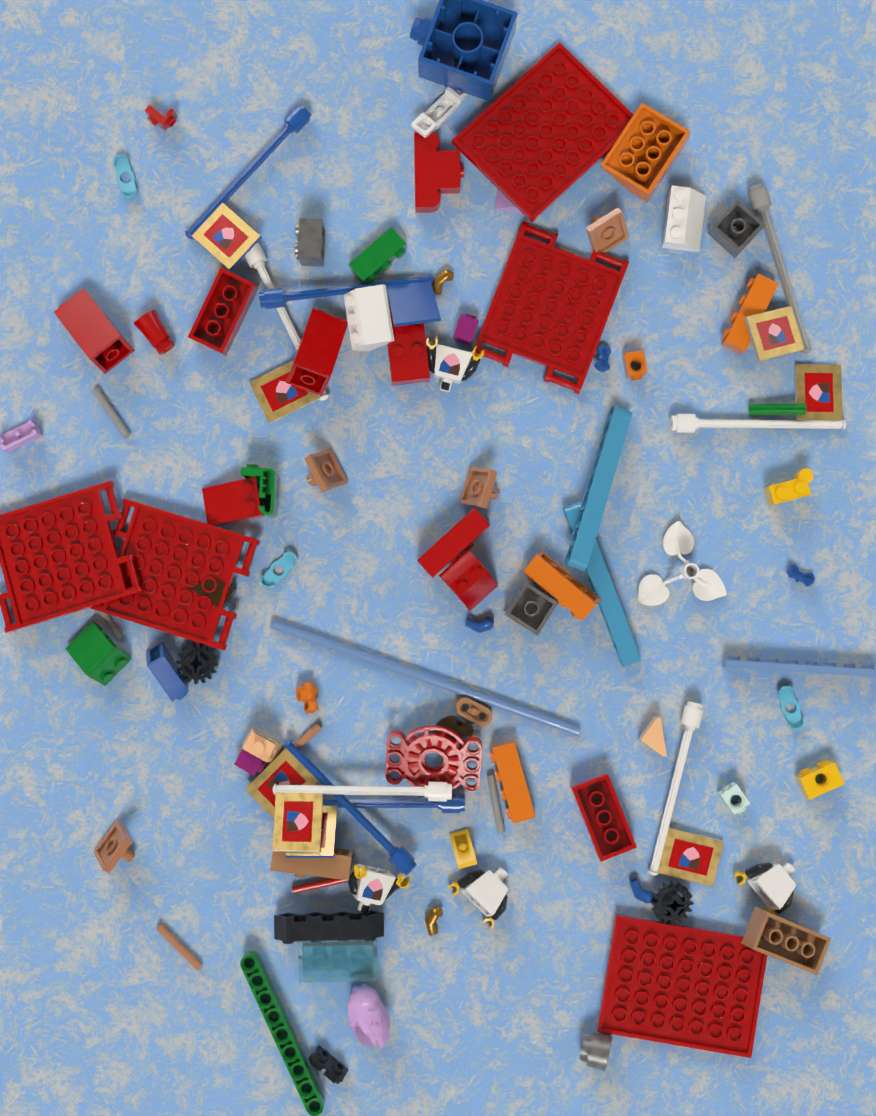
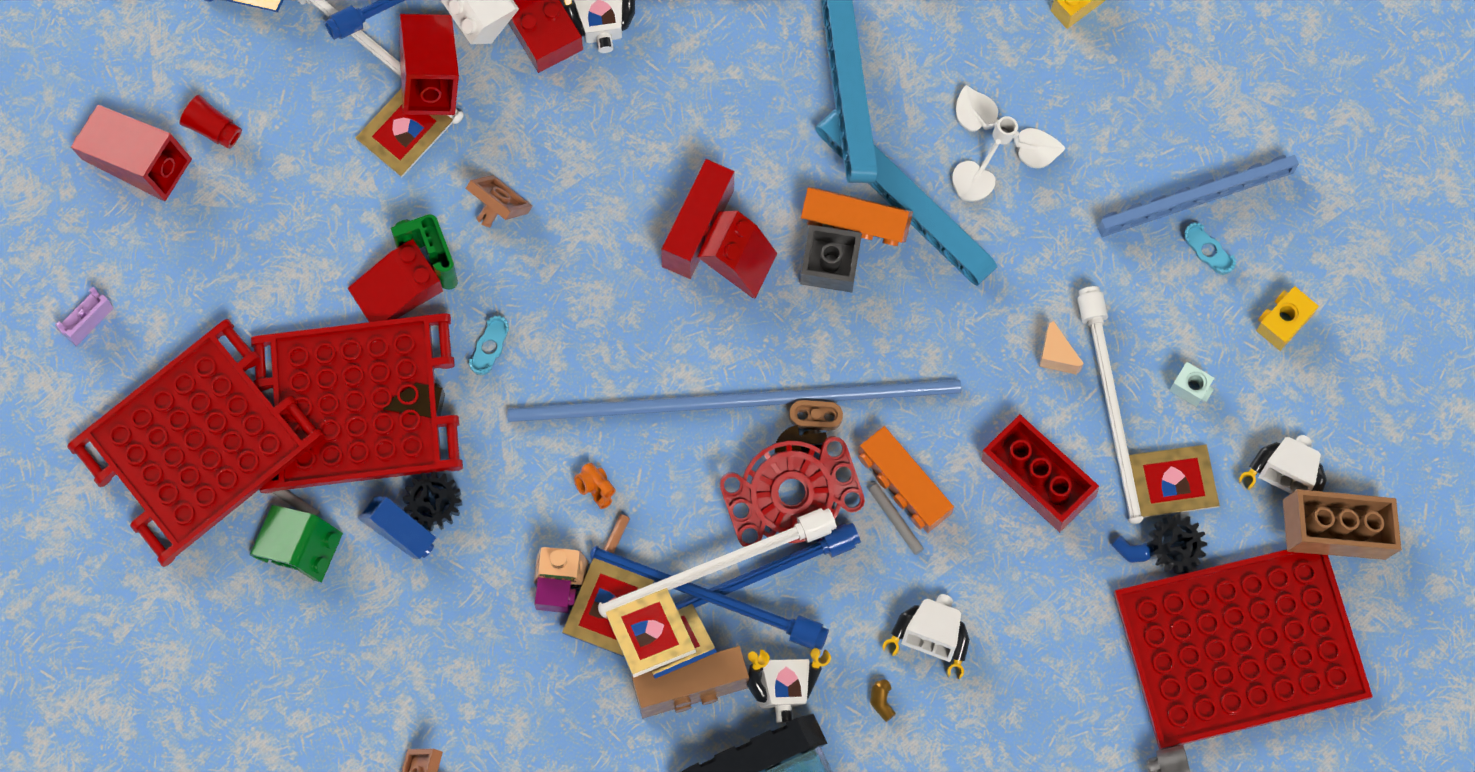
camera: 25 degrees left, 15 degrees down
(111, 412) = (192, 243): light grey bar -> none
(223, 311) = (288, 65): red brick -> none
(316, 884) = (714, 716): red bar -> none
(463, 849) = (880, 589): yellow slope -> none
(479, 487) = (700, 141): nougat tile -> none
(481, 626) = (777, 309): blue arm -> none
(806, 578) = (1155, 90): blue piece -> none

